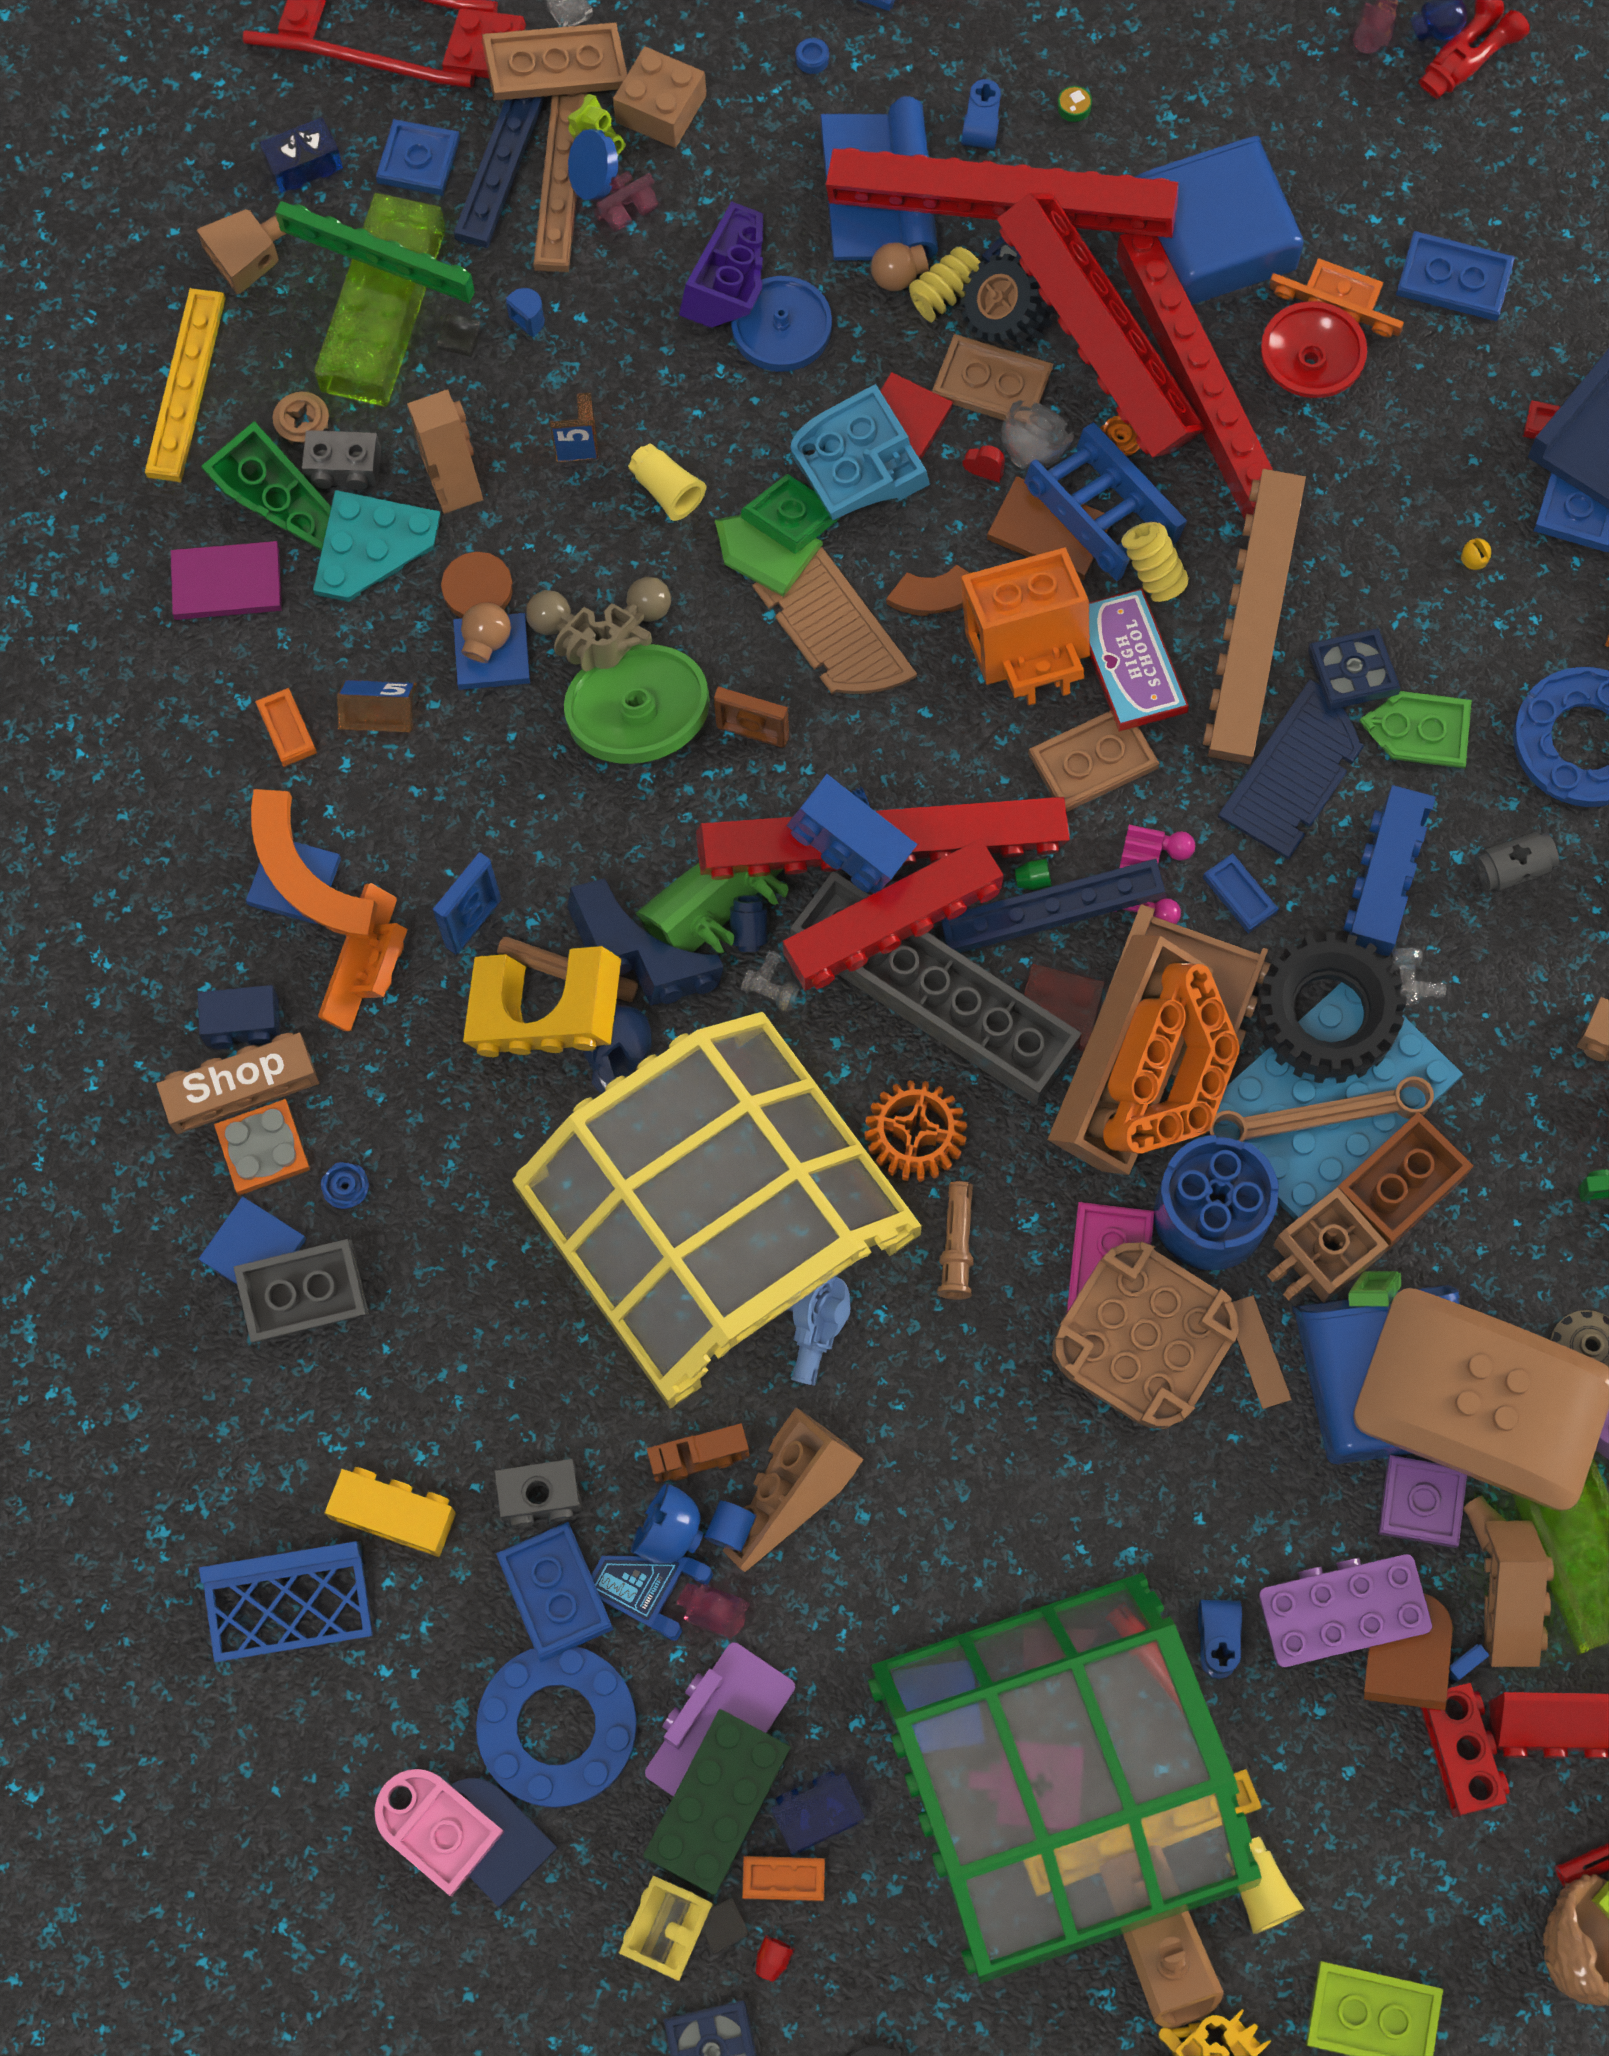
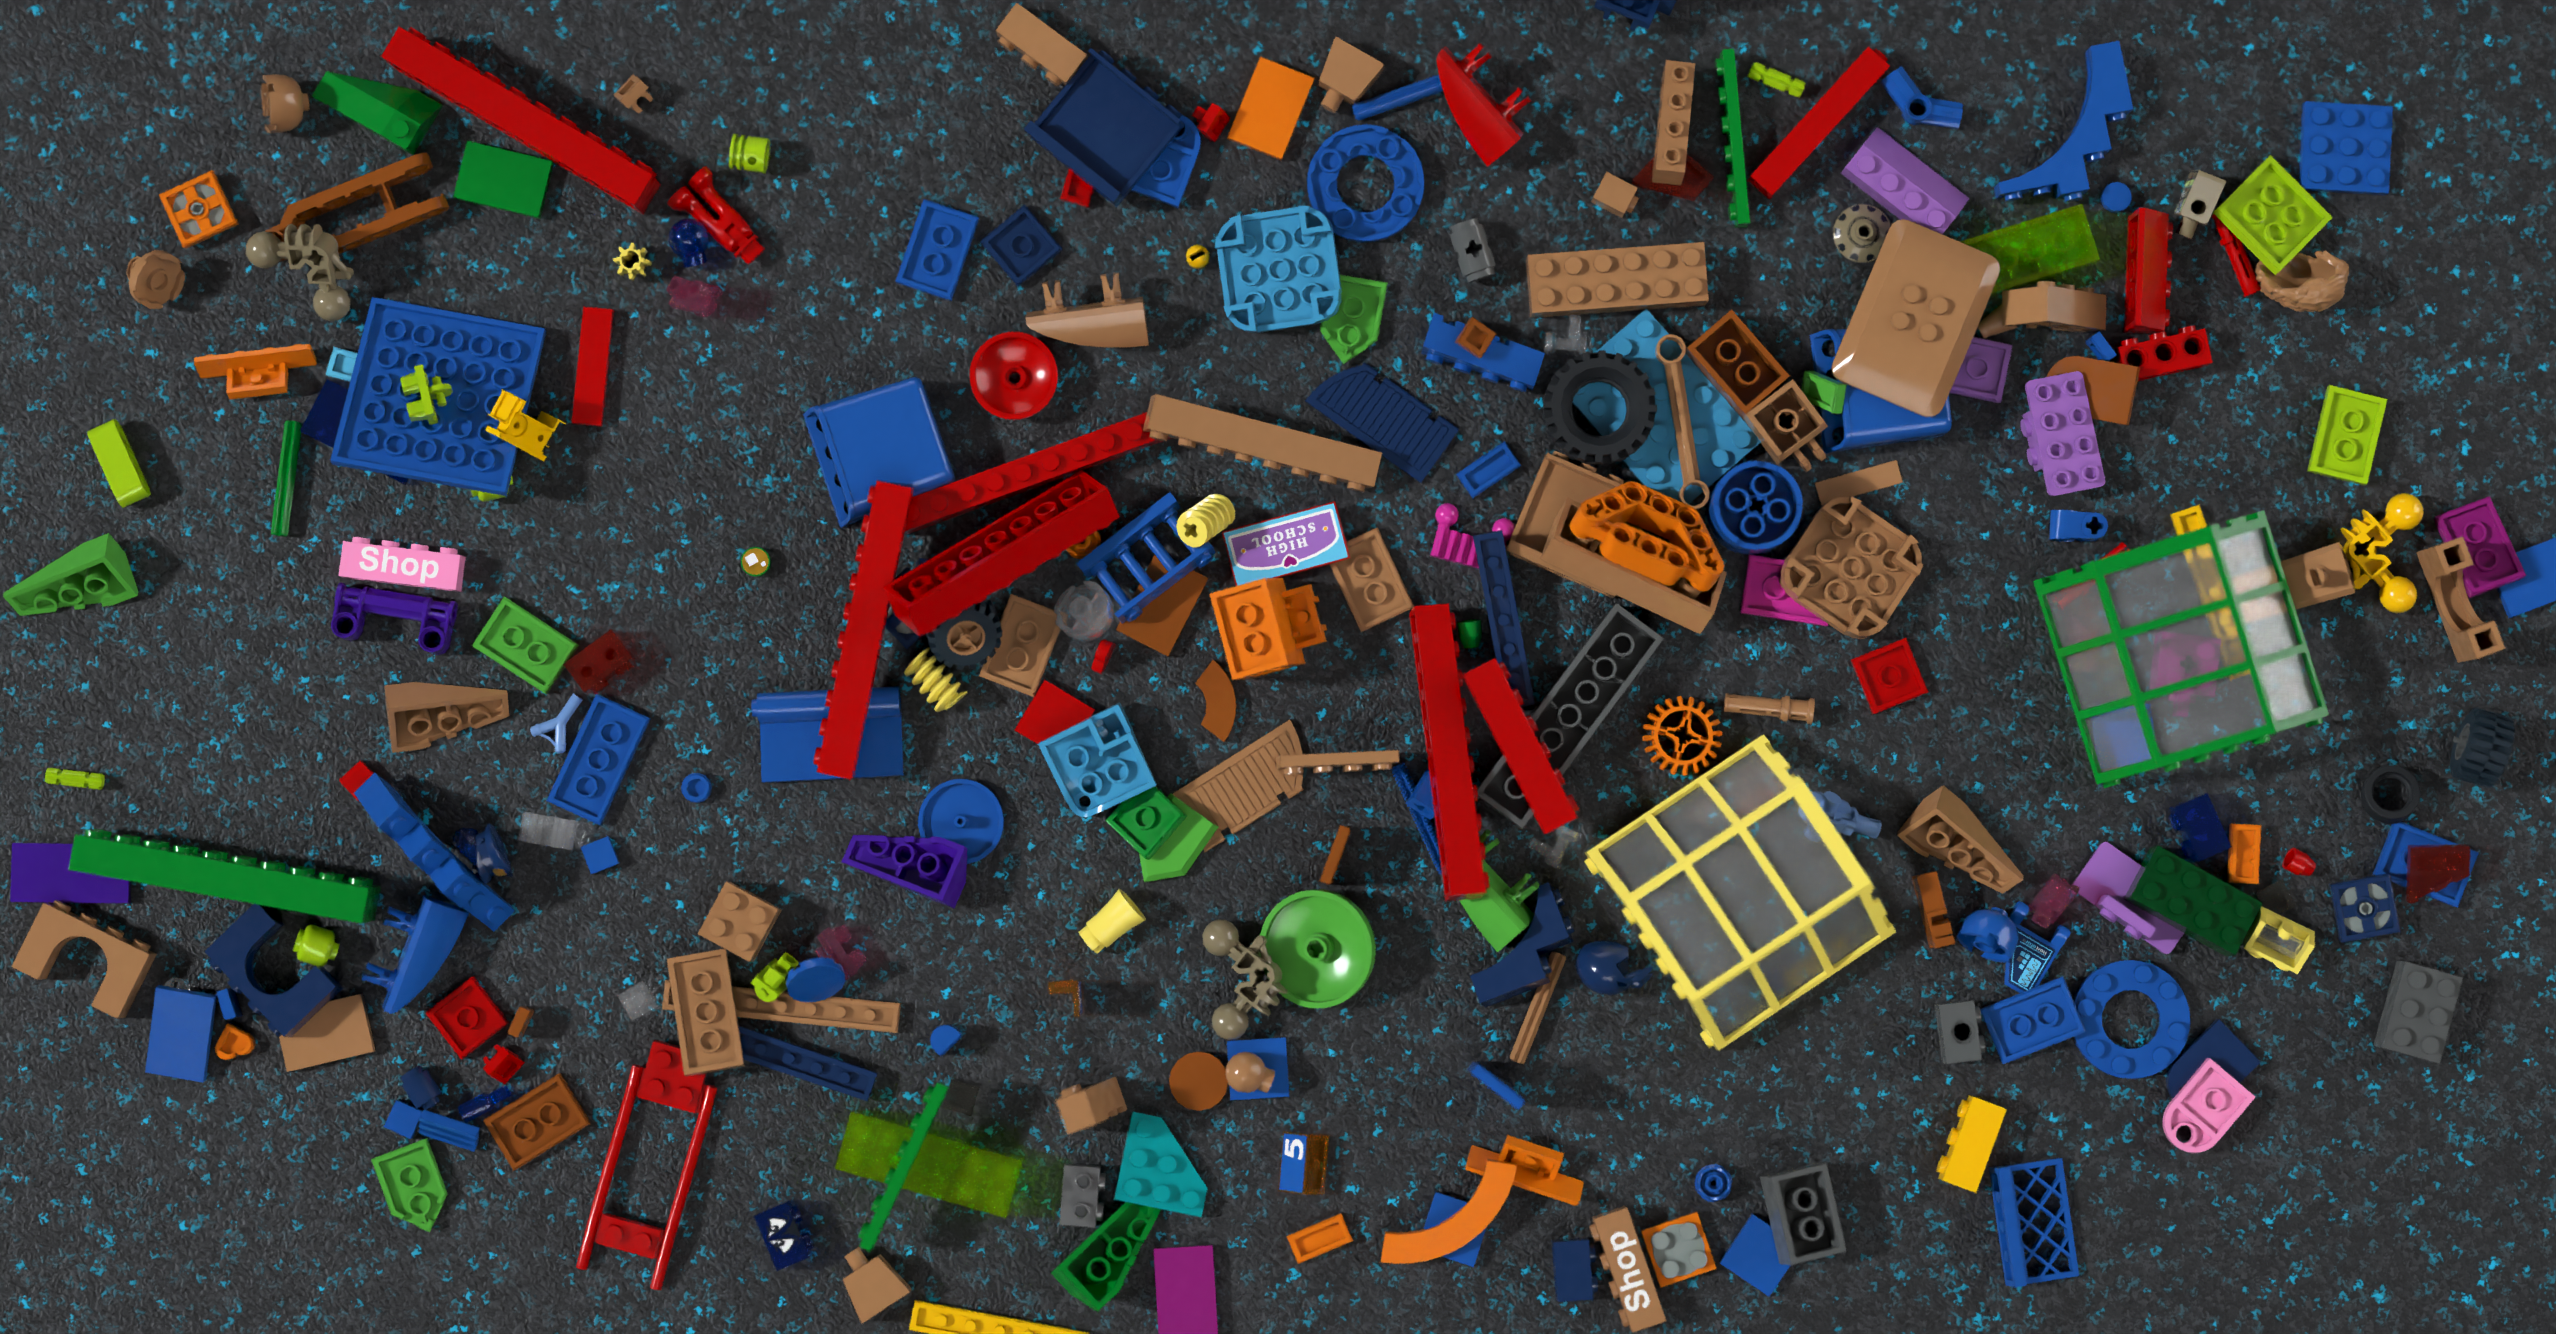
camera: 90 degrees left, 15 degrees up
(294, 406) = (1044, 1243): medium nougat gear -> none
(418, 157) = (784, 1133): blue tile -> none
(579, 1020) = (1586, 1062): yellow arch -> none
(730, 1526) = (1988, 887): blue brick -> none
(748, 923) = (1508, 861): dark blue brick -> none
(851, 835) = (1468, 778): blue brick -> none
(866, 715) = (1348, 761): none -> medium nougat plate
(897, 265) = (917, 721): medium nougat piece -> none
(982, 115) = (776, 642): blue piece -> none
(1005, 1395) = (1889, 676): none -> red tile
(1067, 997) = (1576, 614): clear red wing -> none
(1271, 1900) = (2268, 498): light yellow plant -> none
(1343, 289) = (955, 348): orange bracket -> none
(1354, 669) = (1301, 365): dark blue piece -> none
(1383, 449) = (1102, 324): none -> medium nougat piece
(1408, 849) = (1475, 337): none -> dark orange tile
(1469, 363) = (1021, 245): none -> dark blue tile
(1470, 636) = (1279, 269): none -> dark azure plate
(1497, 1035) = (1617, 280): none -> medium nougat brick
(1547, 69) = (749, 153): none -> lime piece

